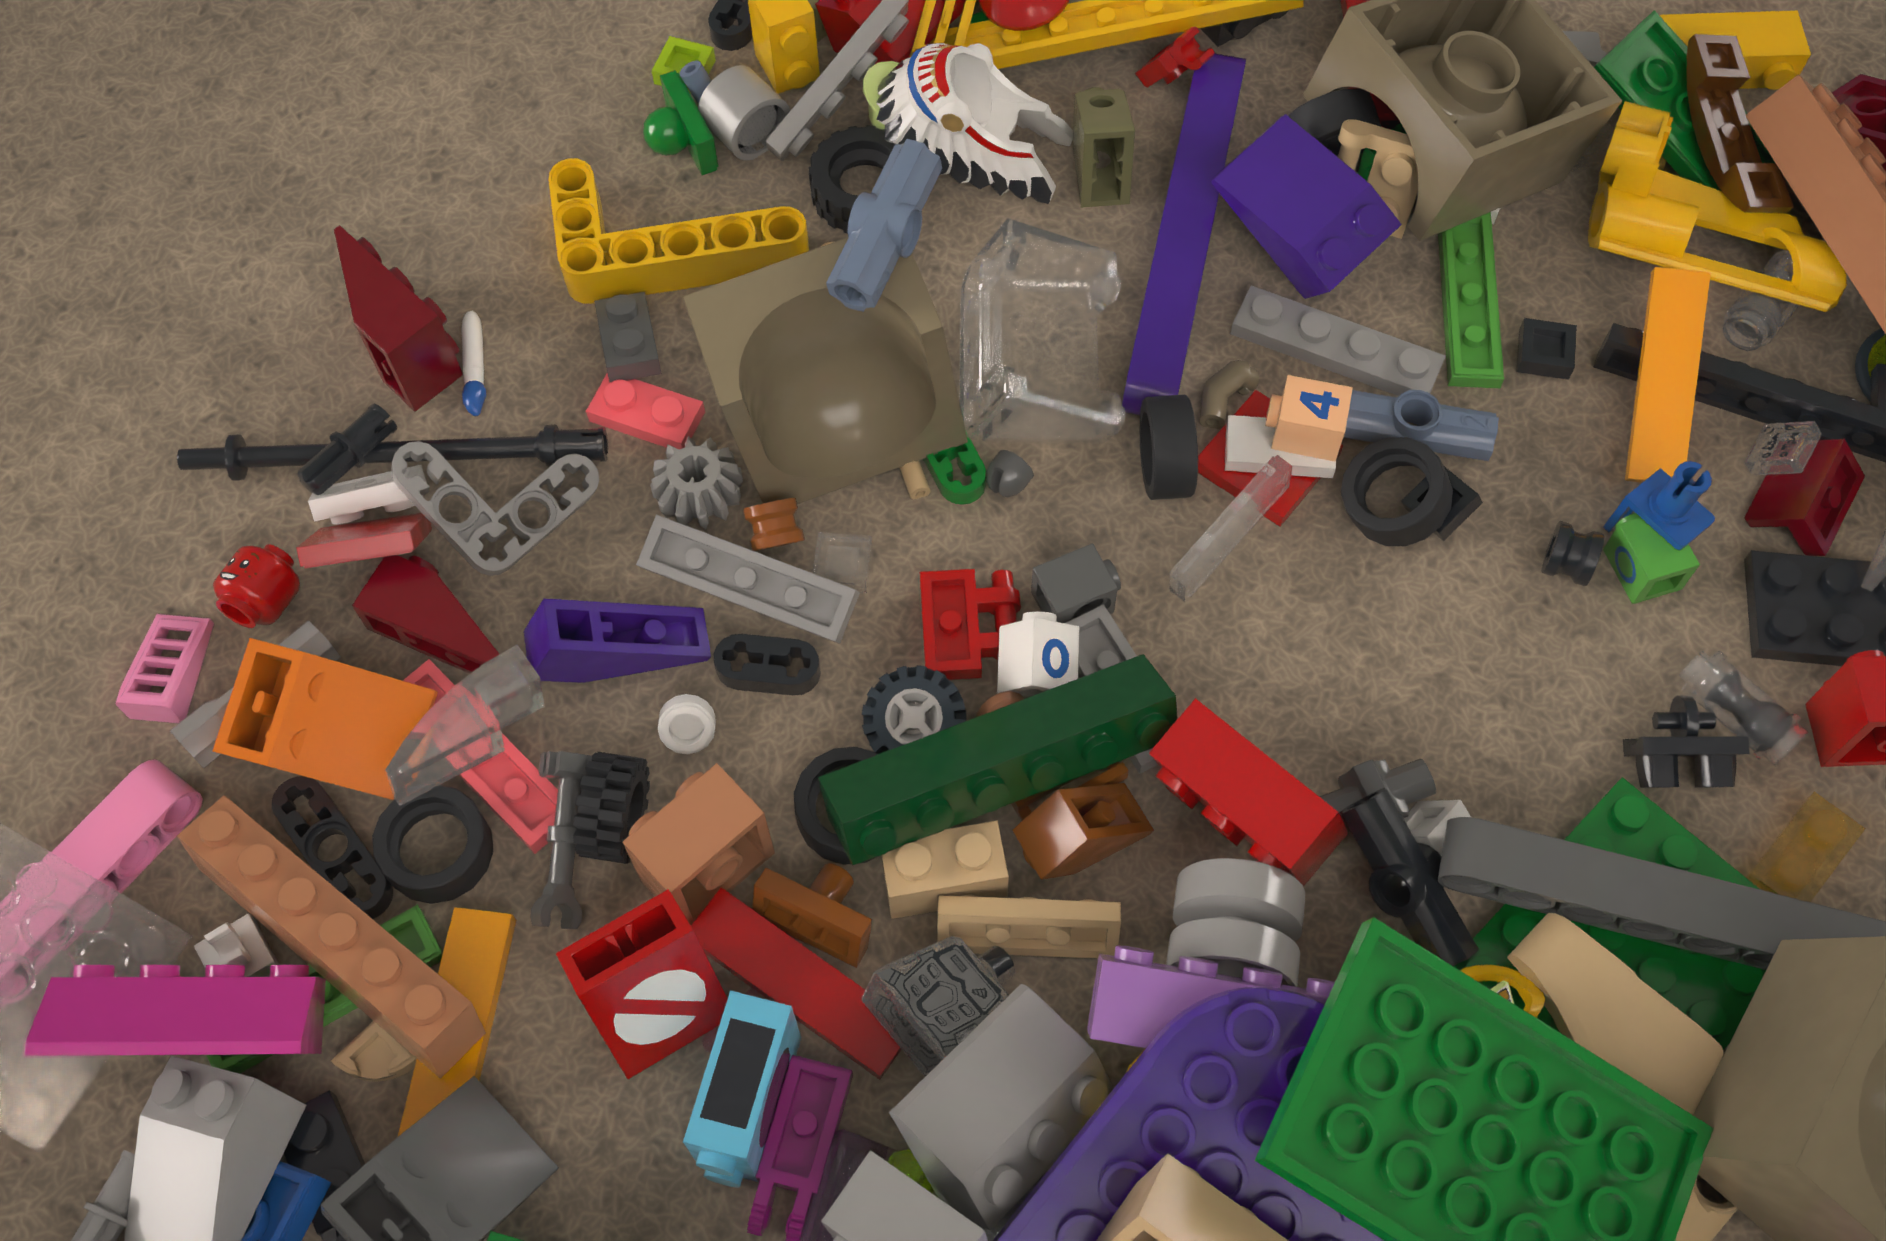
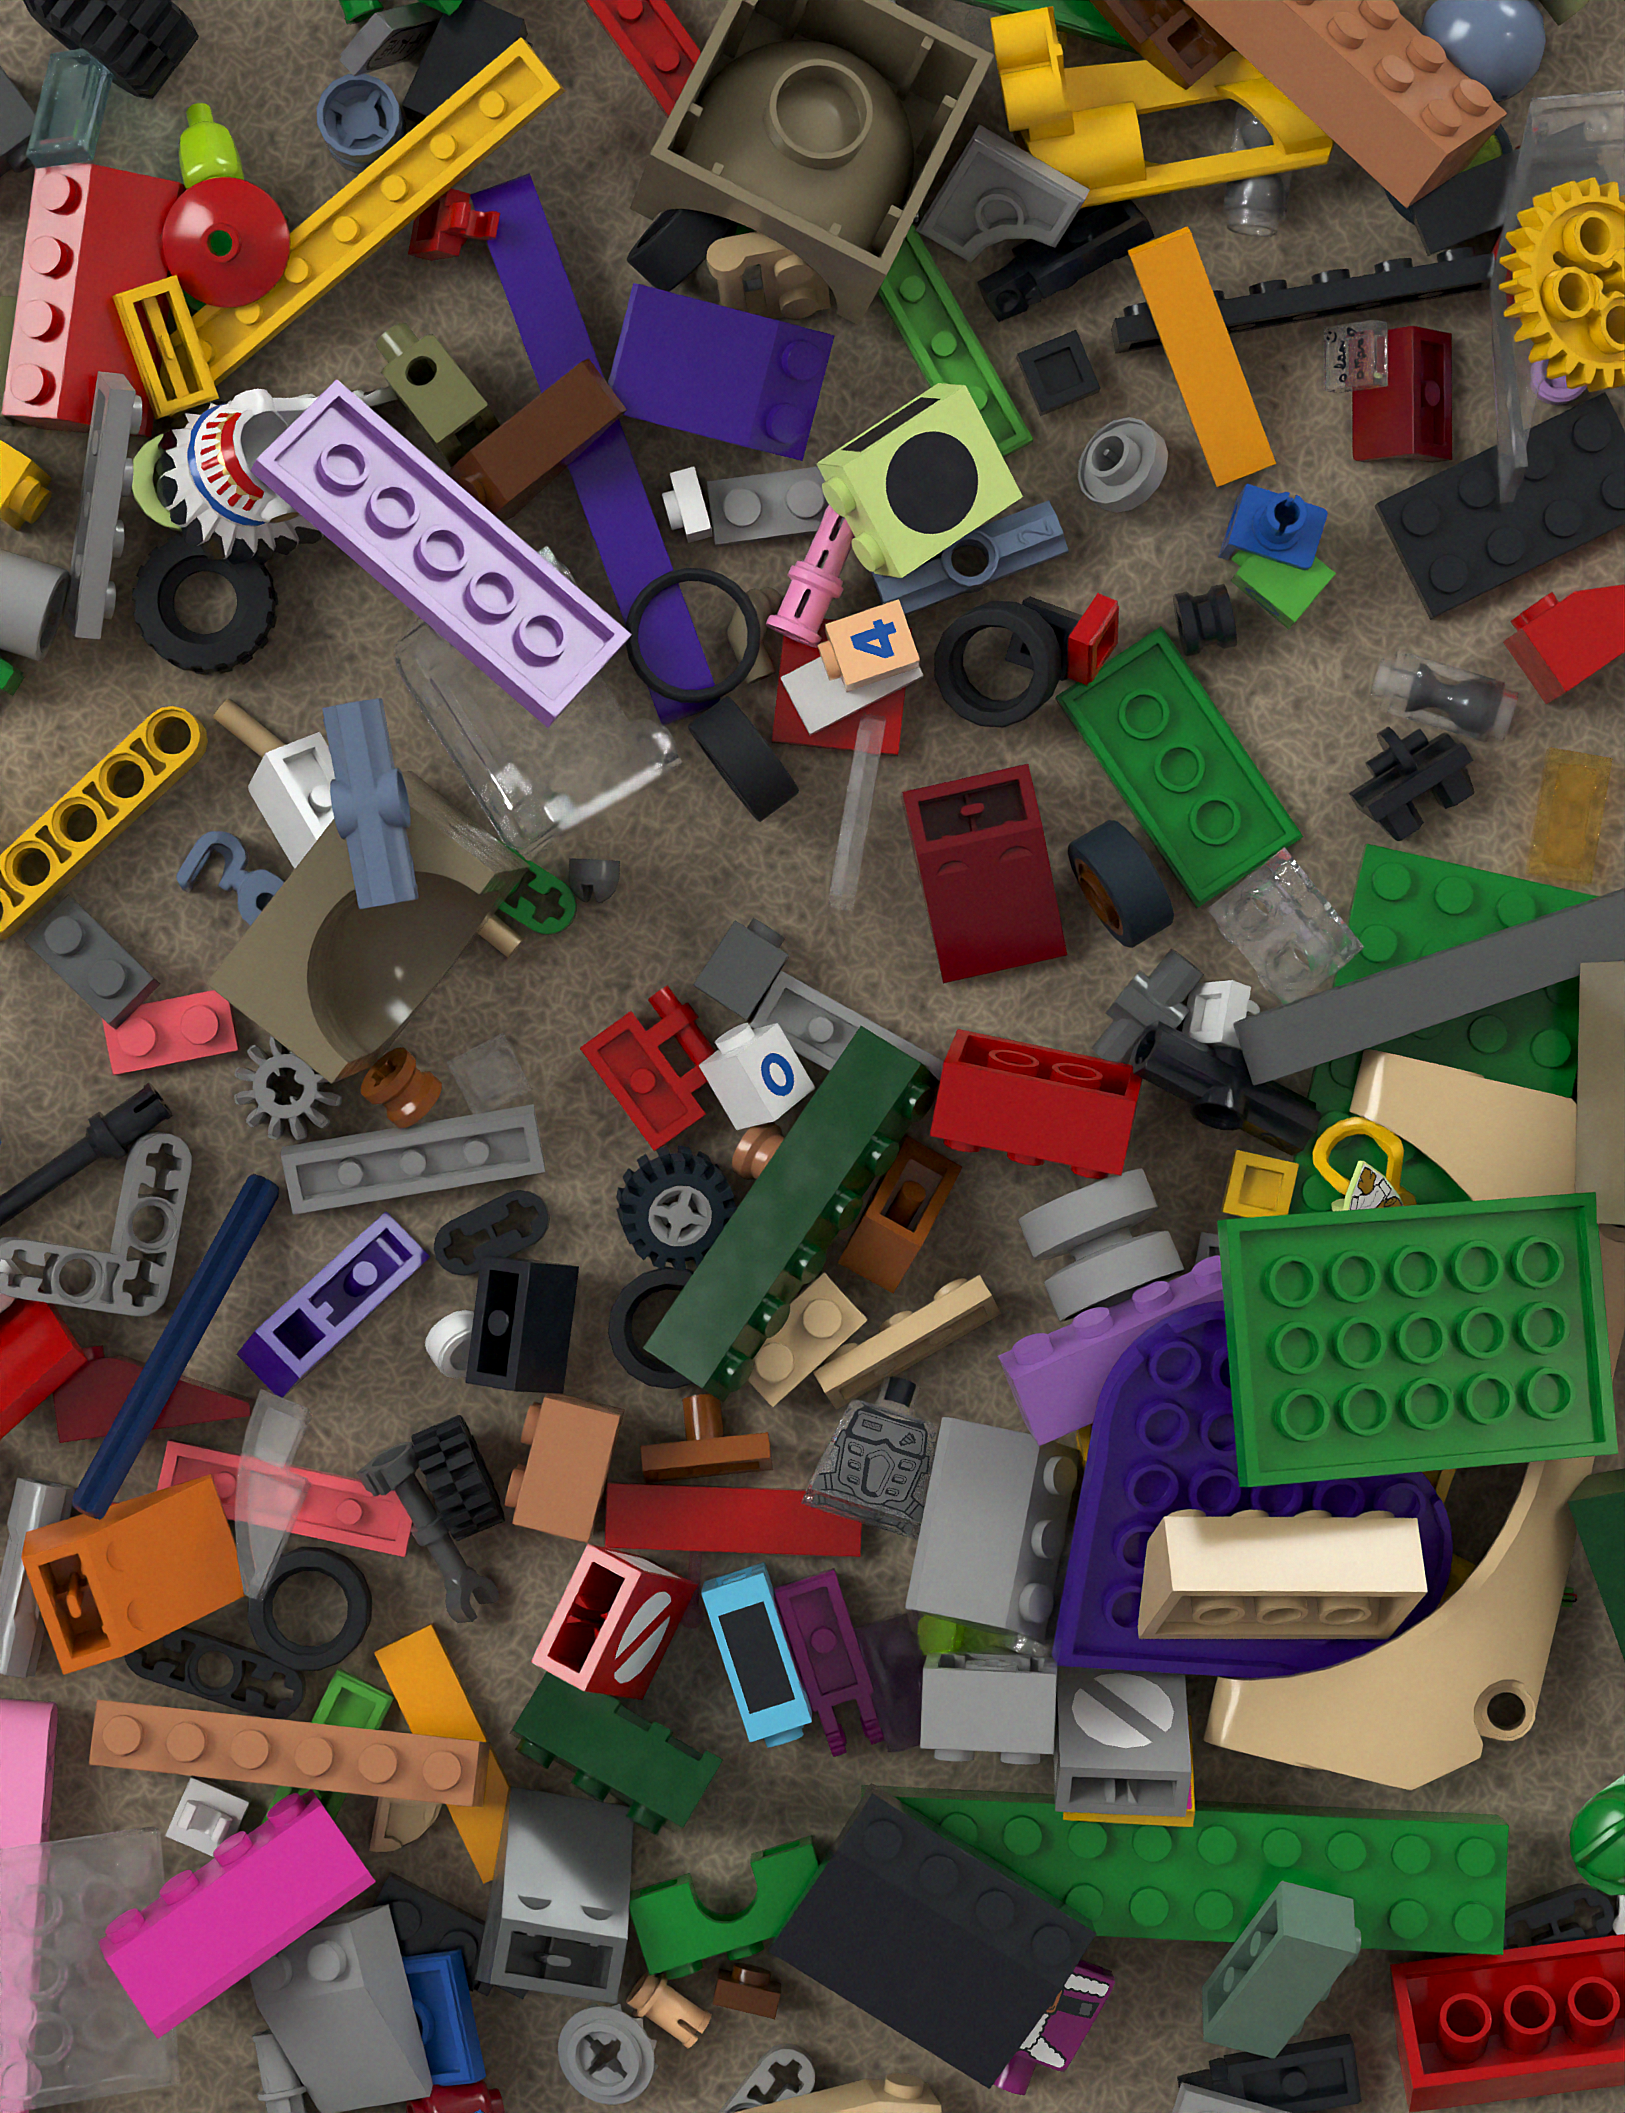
camera: 35 degrees left, 25 degrees up
(476, 589) = (175, 1347): none -> dark blue axle
(574, 1101) = (614, 1753): none -> dark green wedge
(743, 724) = (522, 1324): none -> black brick
(1044, 195) = (441, 552): none -> plate
(1141, 185) = (538, 441): none -> reddish brown slope
(1183, 310) = (731, 681): none -> black tyre
(1228, 288) = (686, 505): none -> white plate
(1303, 622) = (984, 873): none -> dark red slope
(1312, 356) = (813, 582): none -> bright pink pin
(1407, 684) = (1120, 883): none -> black wheel
(1410, 334) = (918, 481): none -> yellowish green brick
(1479, 515) = (1093, 639): none -> red tile
(1495, 649) = (1179, 767): none -> green tile
(1535, 786) = (1296, 919): none -> clear brick
(1565, 422) = (1122, 465): none -> light grey plate
(1566, 214) = (999, 196): none -> light grey tile
(1583, 284) = (1039, 270): none -> black hinge

